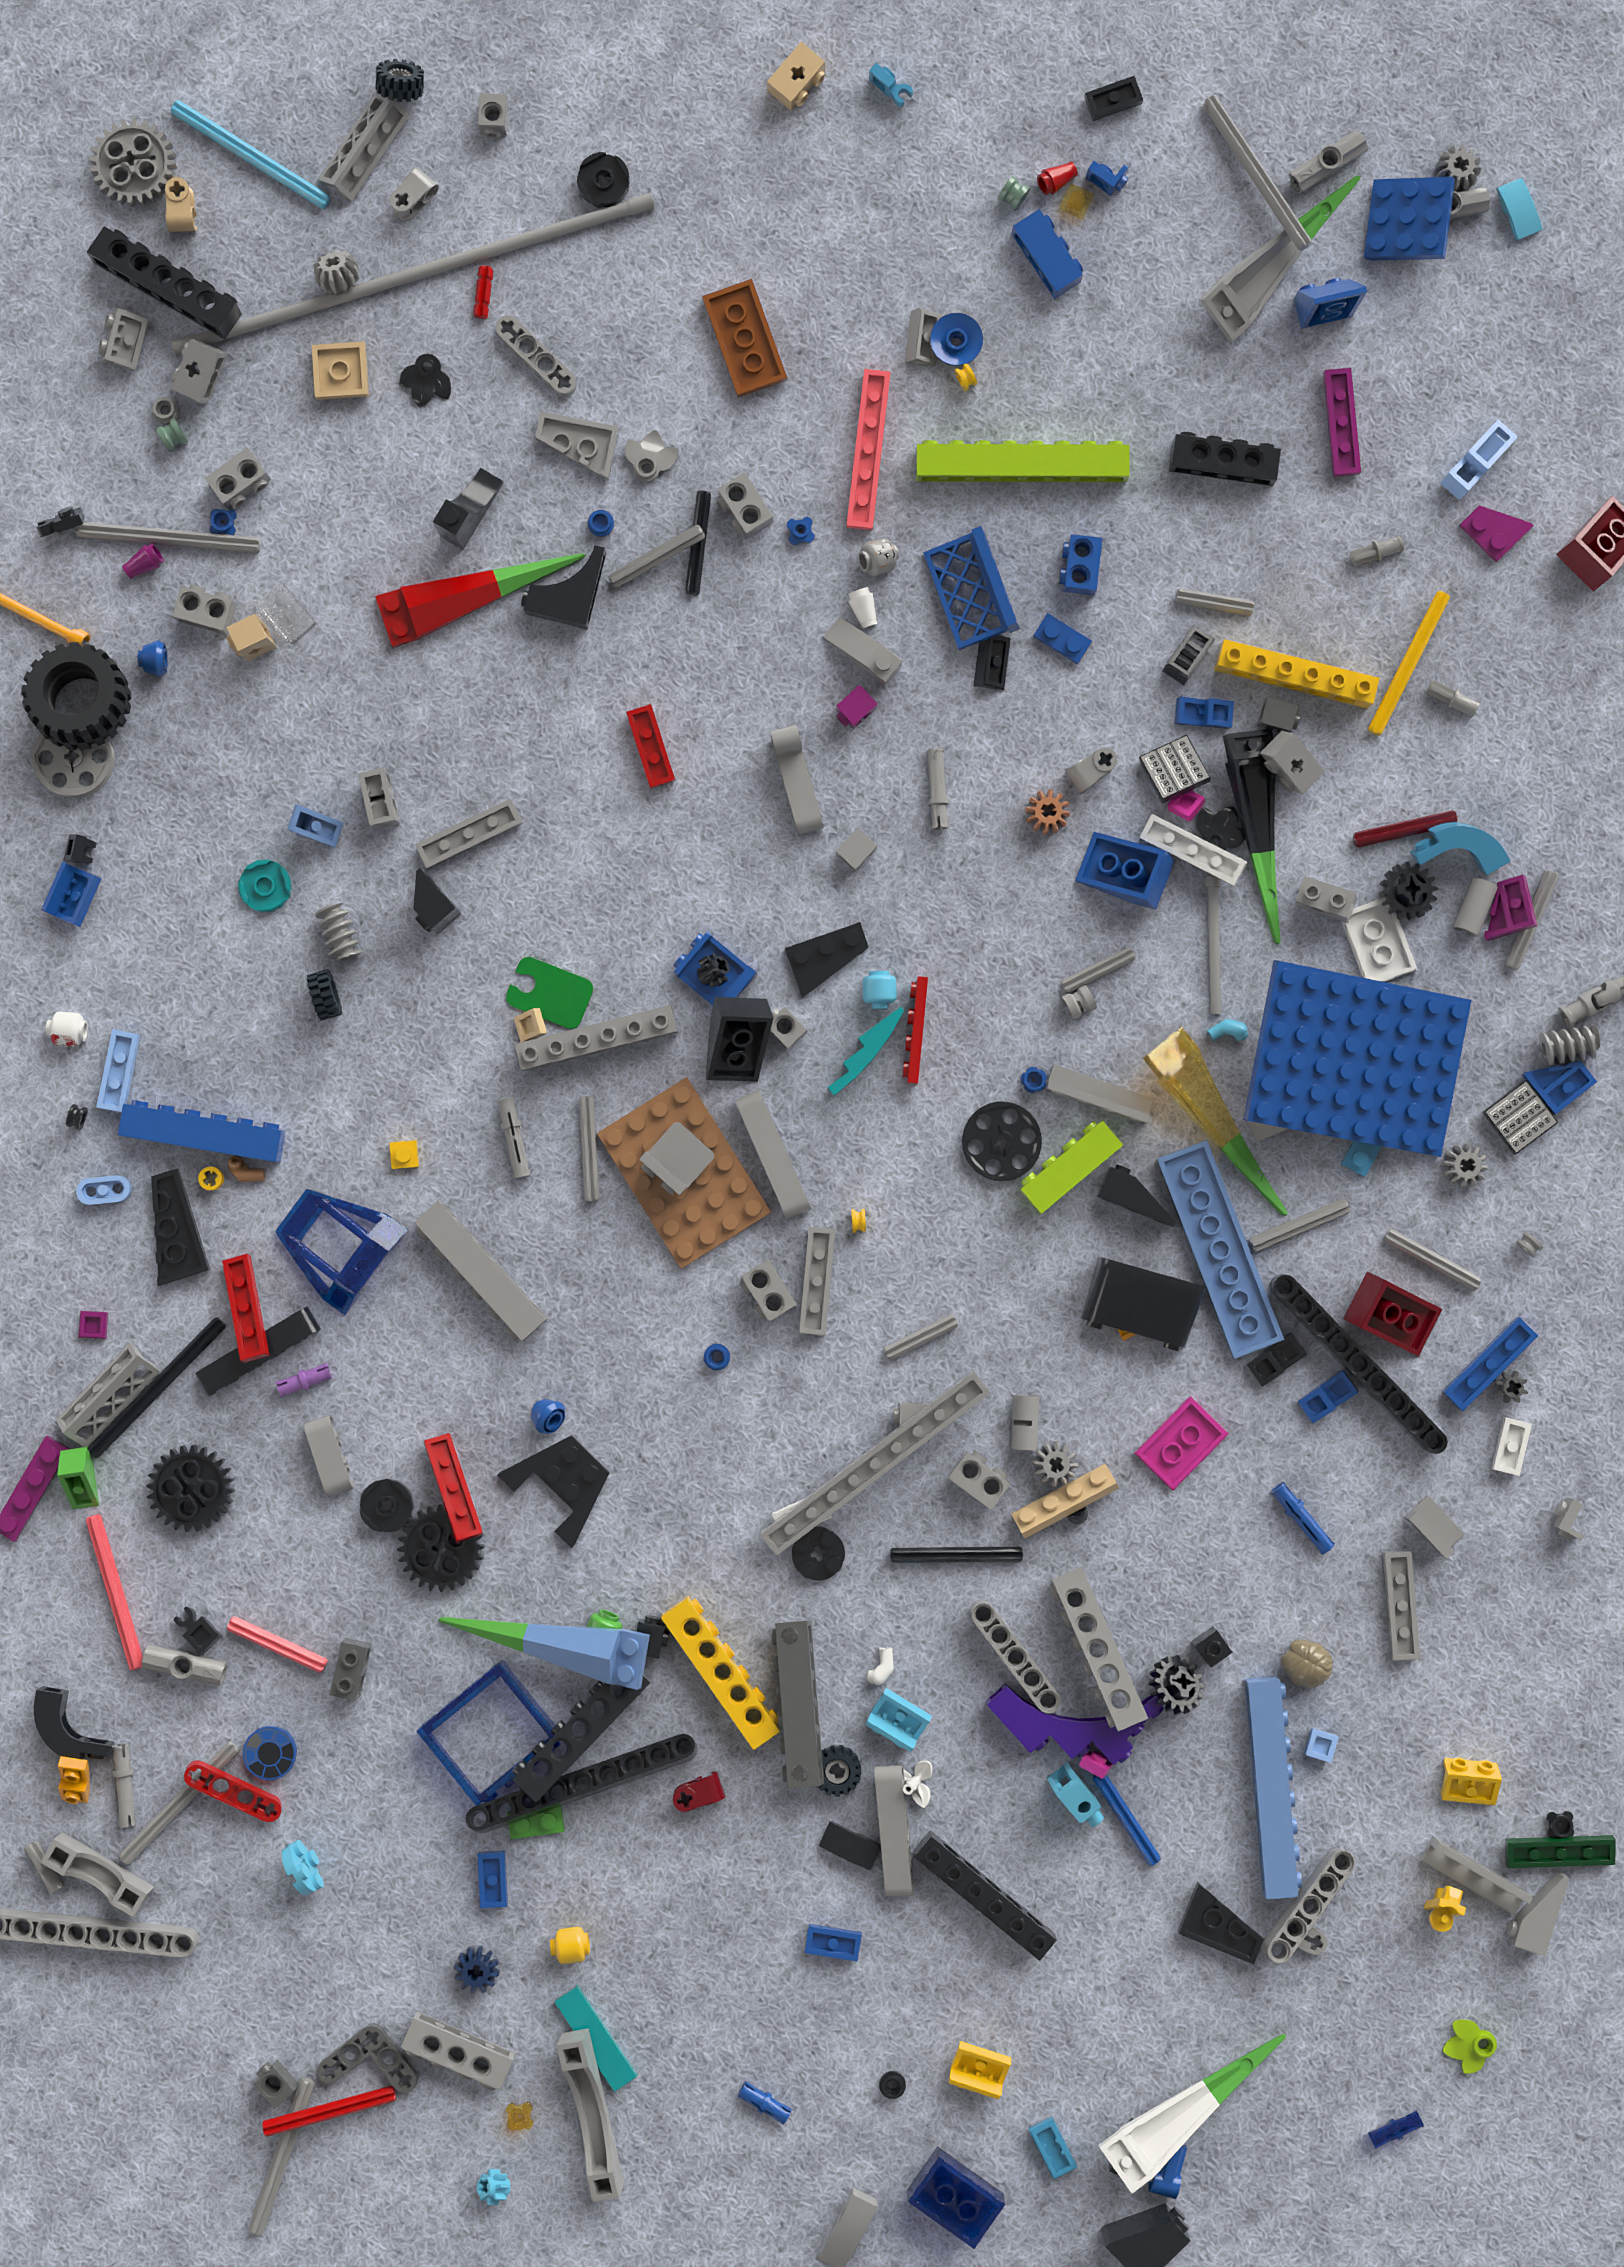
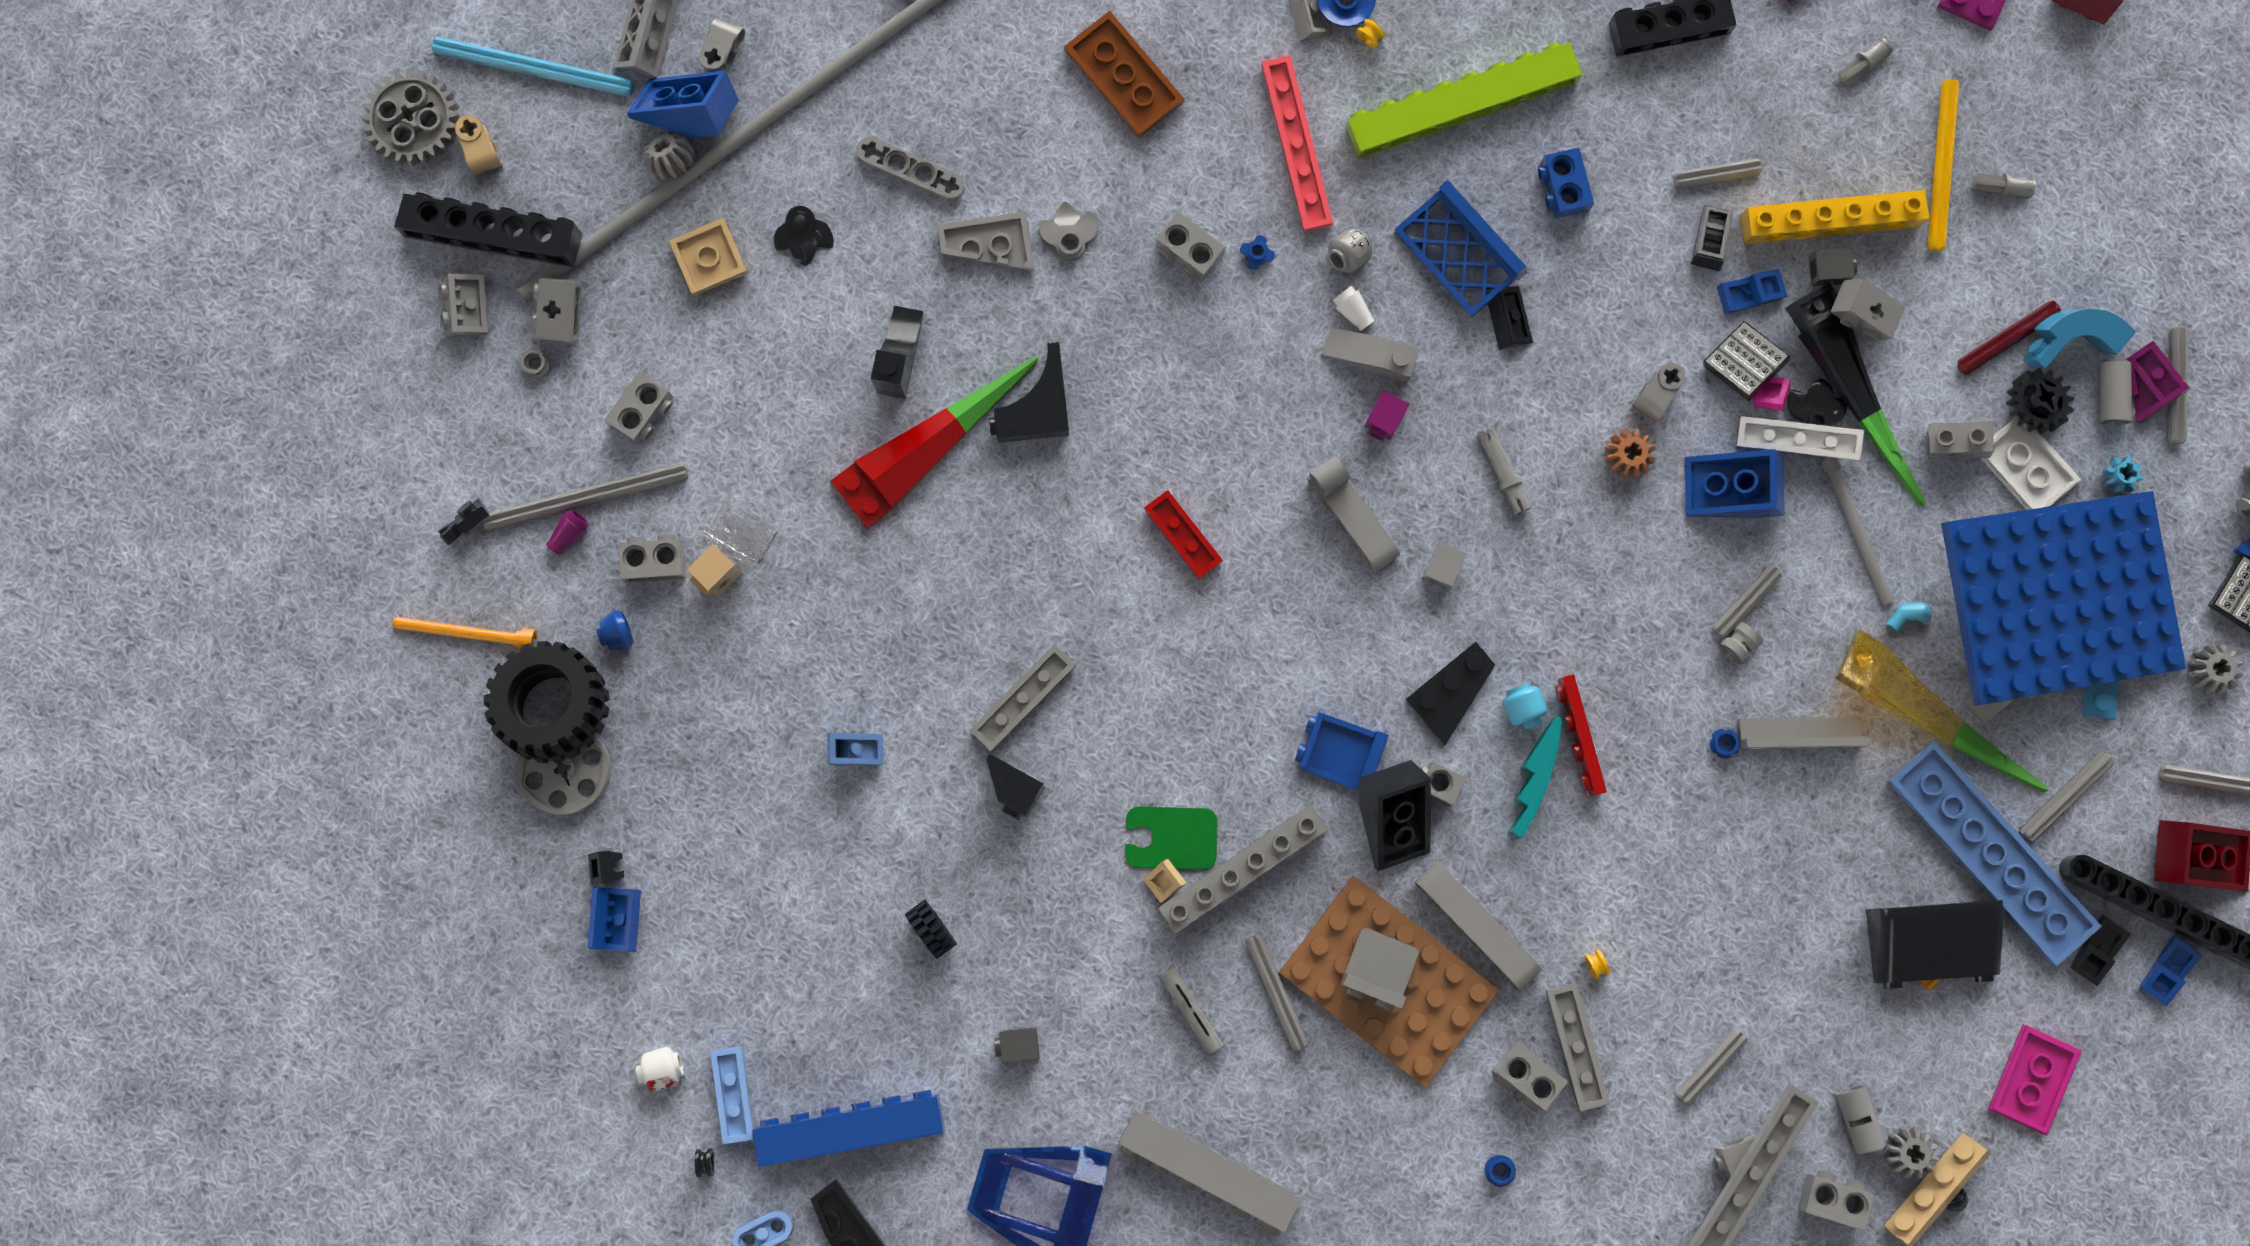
camera: 25 degrees left, 5 degrees down
(172, 435) = (552, 387): sand green wheel -> none
(202, 1177) = (885, 1176): yellow bush -> none
(219, 515) = (630, 456): blue plate -> none
(242, 1171) = (908, 1156): medium nougat arm -> none
(273, 891) = (831, 837): teal tile -> none
(337, 932) = (920, 856): light grey piece -> none
(362, 1114) = (1017, 1045): none -> dark grey brick
(366, 233) = (686, 103): none -> blue slope
(379, 798) = (913, 695): light grey brick -> none
(404, 1154) = (1078, 1072): yellow plate -> none
(483, 292) = (830, 122): red axle -> none
(600, 523) = (1043, 319): blue plate -> none
(656, 556) = (1116, 332): light grey axle -> none
(697, 550) = (1153, 303): black axle -> none
(713, 970) = (1340, 750): black gear -> none
(1011, 1131) = (1731, 821): black wedge -> none
(1062, 638) = (1574, 267): blue plate -> none
(1071, 1166) = (1801, 822): lime brick -> none
(1129, 1193) = (1876, 828): black slope -> none
(1295, 1509) = (2185, 1106): blue pin -> none
(1445, 977) = (2116, 478): none -> medium azure gear

